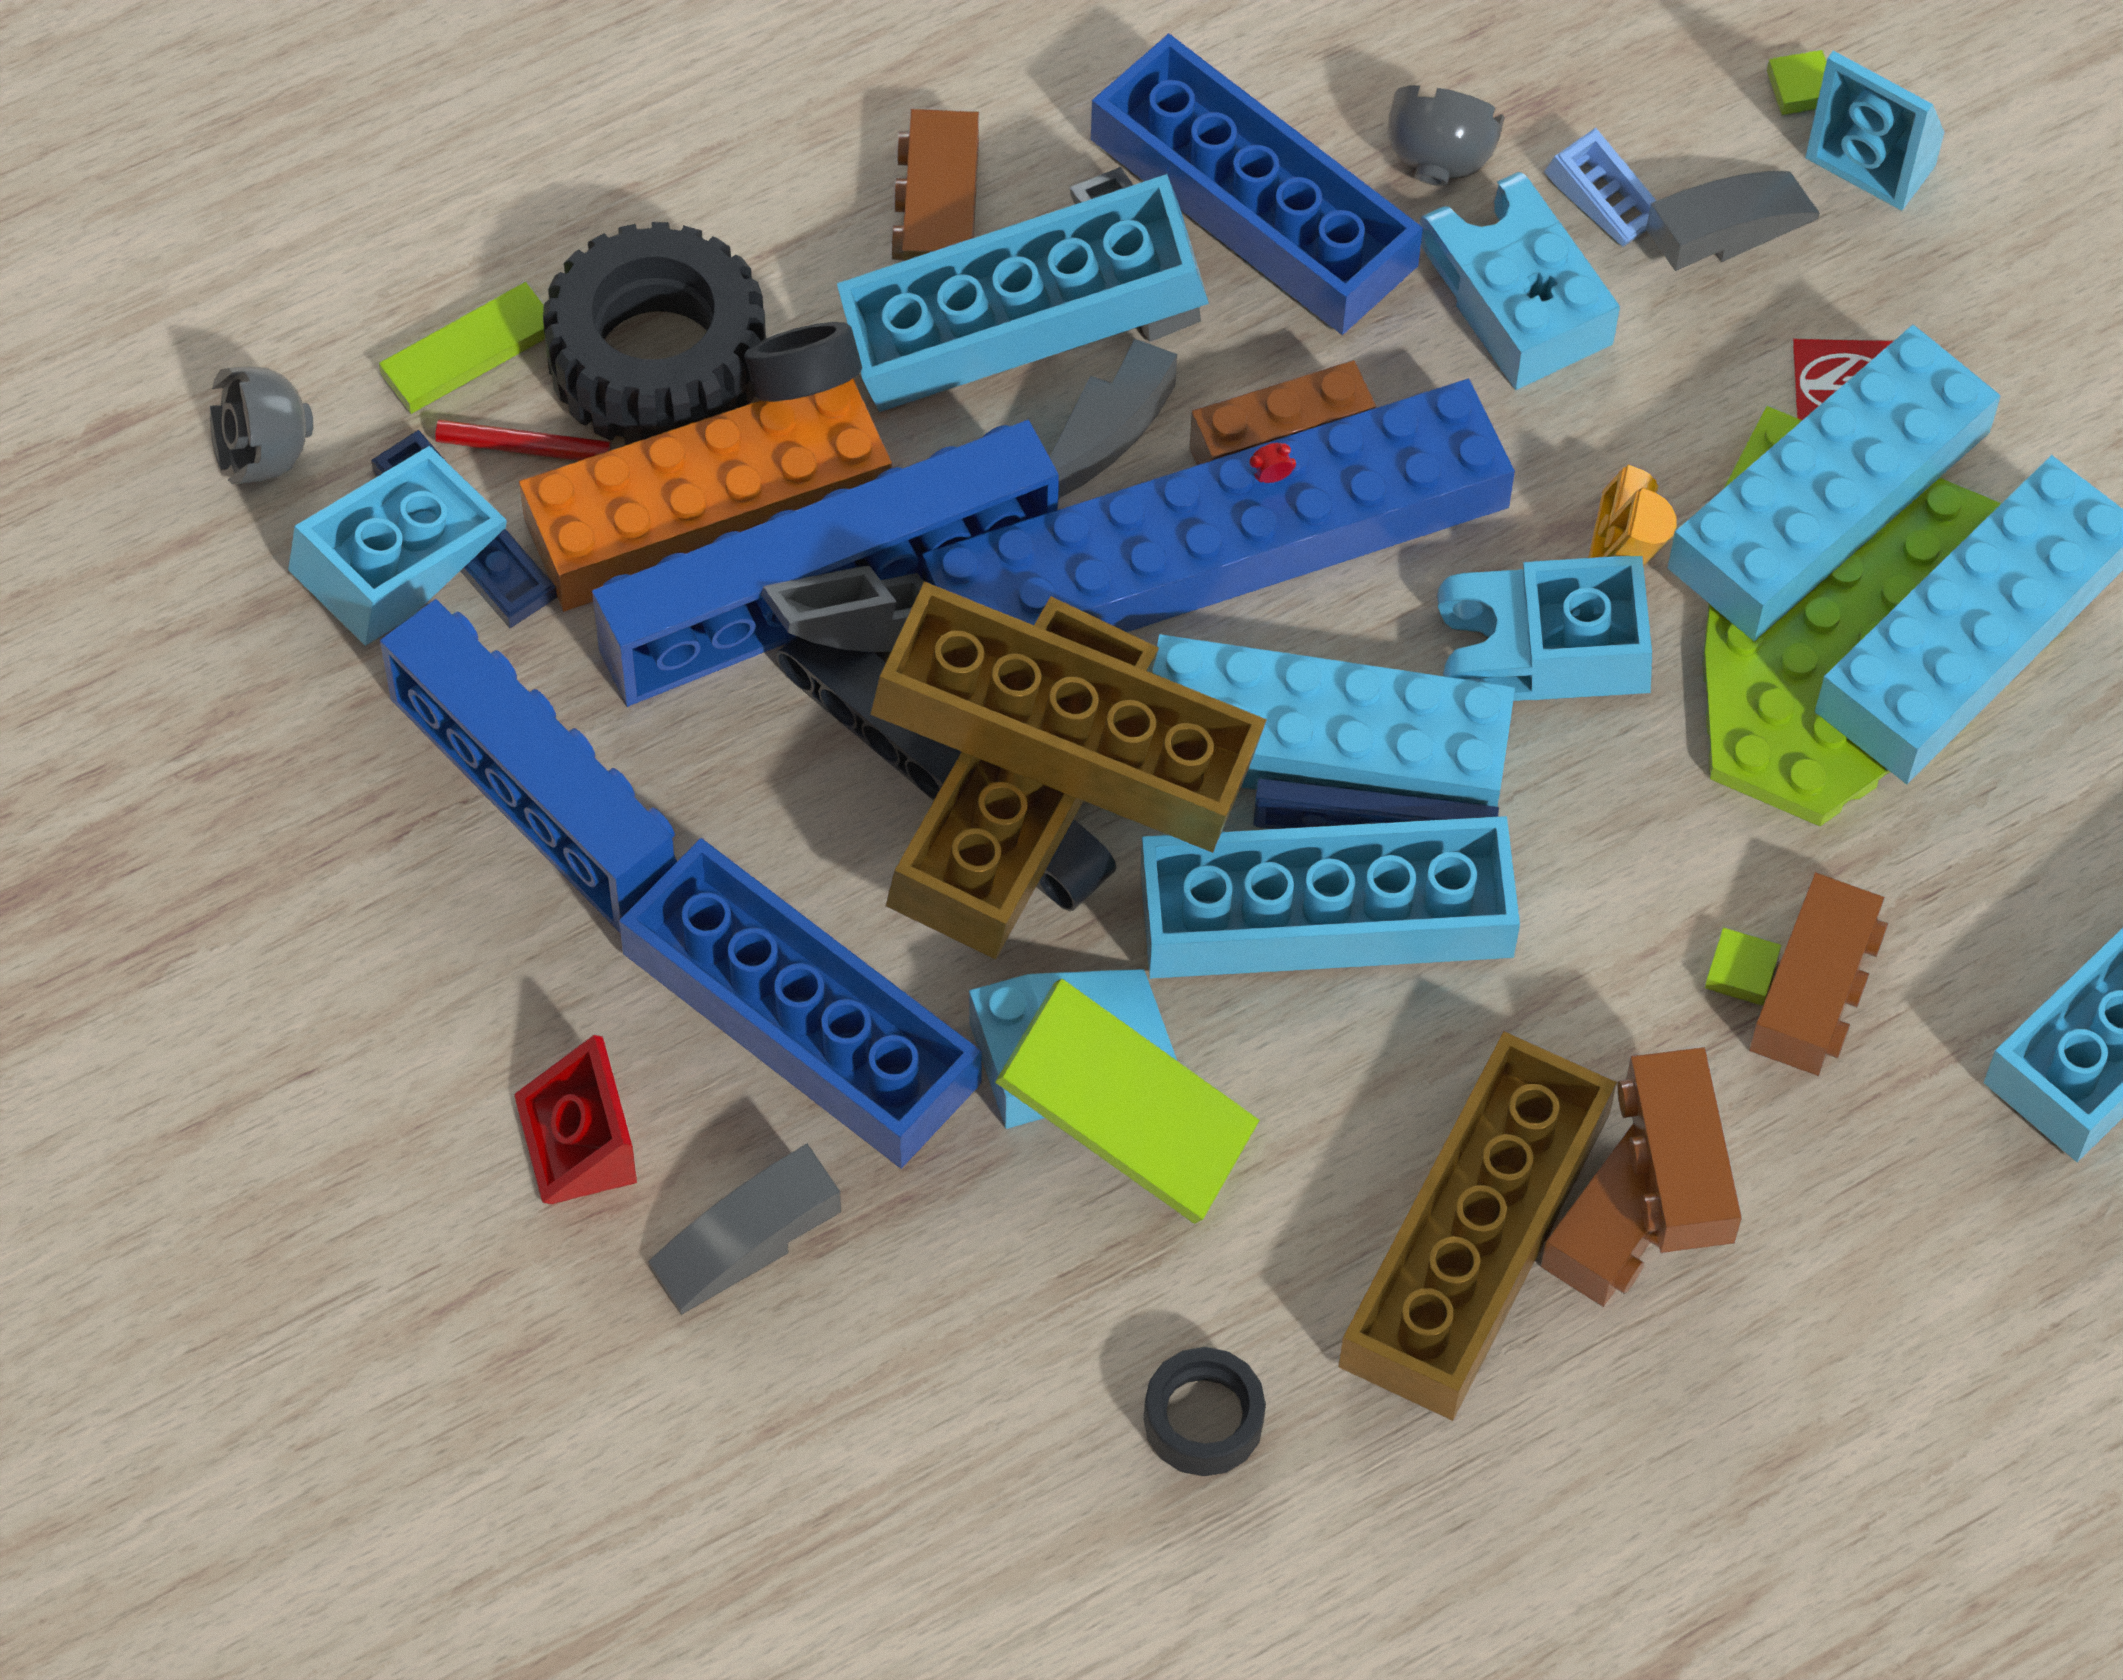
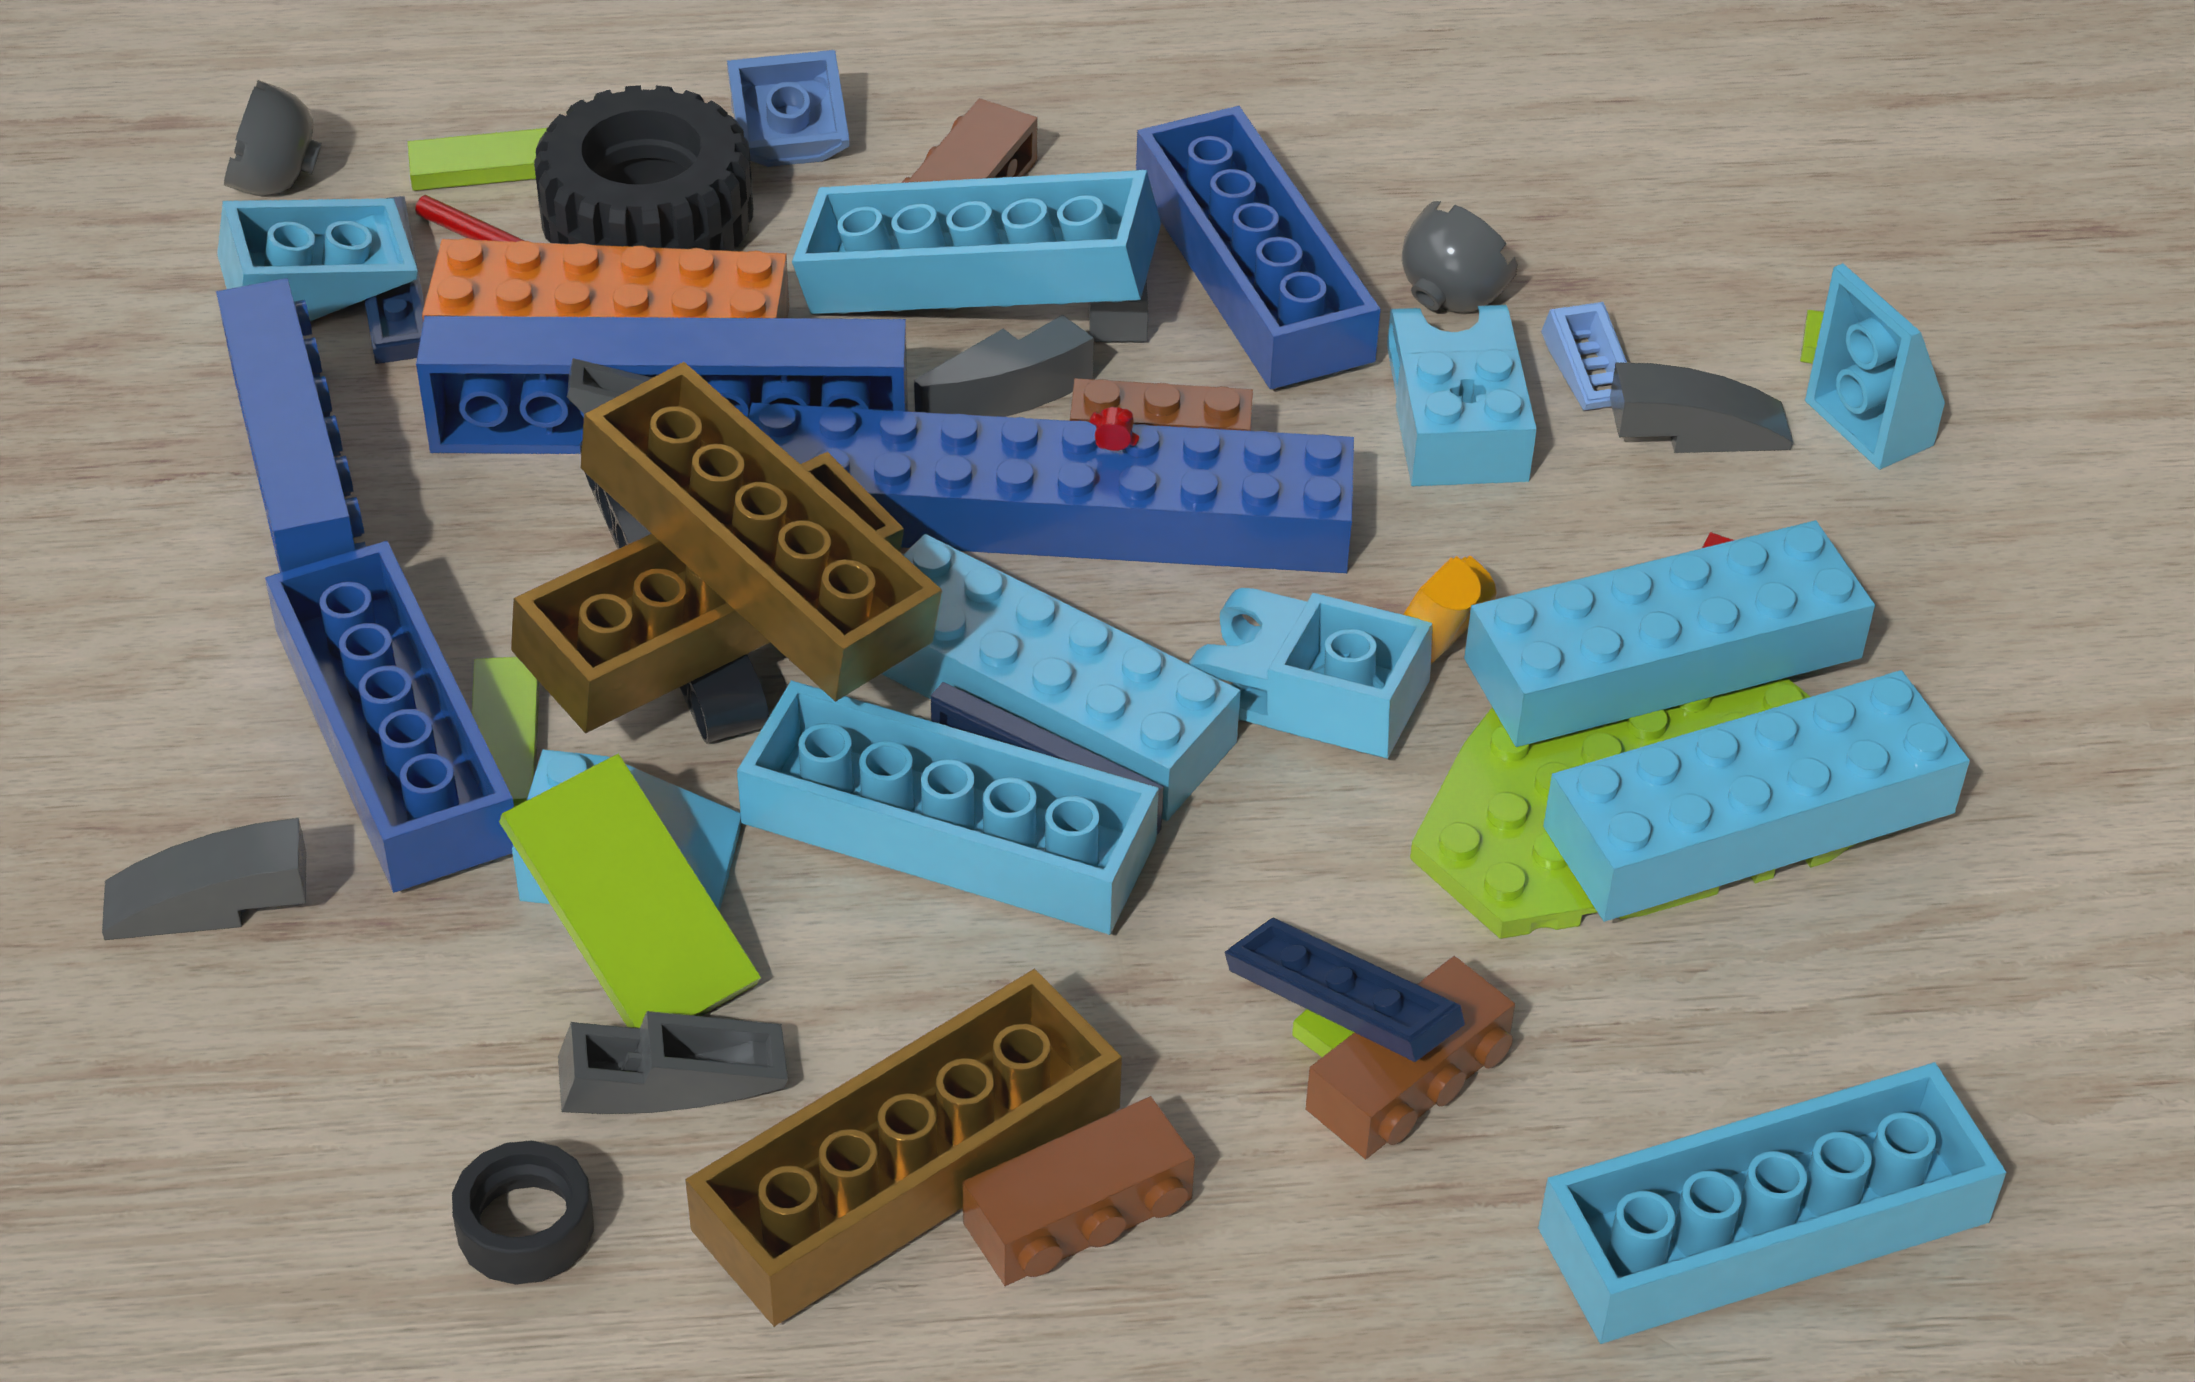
camera: 25 degrees right, 15 degrees down
(577, 1126) = (129, 744): red slope -> none
(727, 181) = (789, 107): none -> medium blue slope
(803, 361) = (742, 224): black tyre -> none
(874, 936) = (507, 716): none -> lime tile
(1236, 1232) = (668, 1064): none -> dark grey slope
(1680, 1150) = (1145, 1142): dark orange brick -> none
(1742, 938) = (1345, 989): none -> dark blue tile

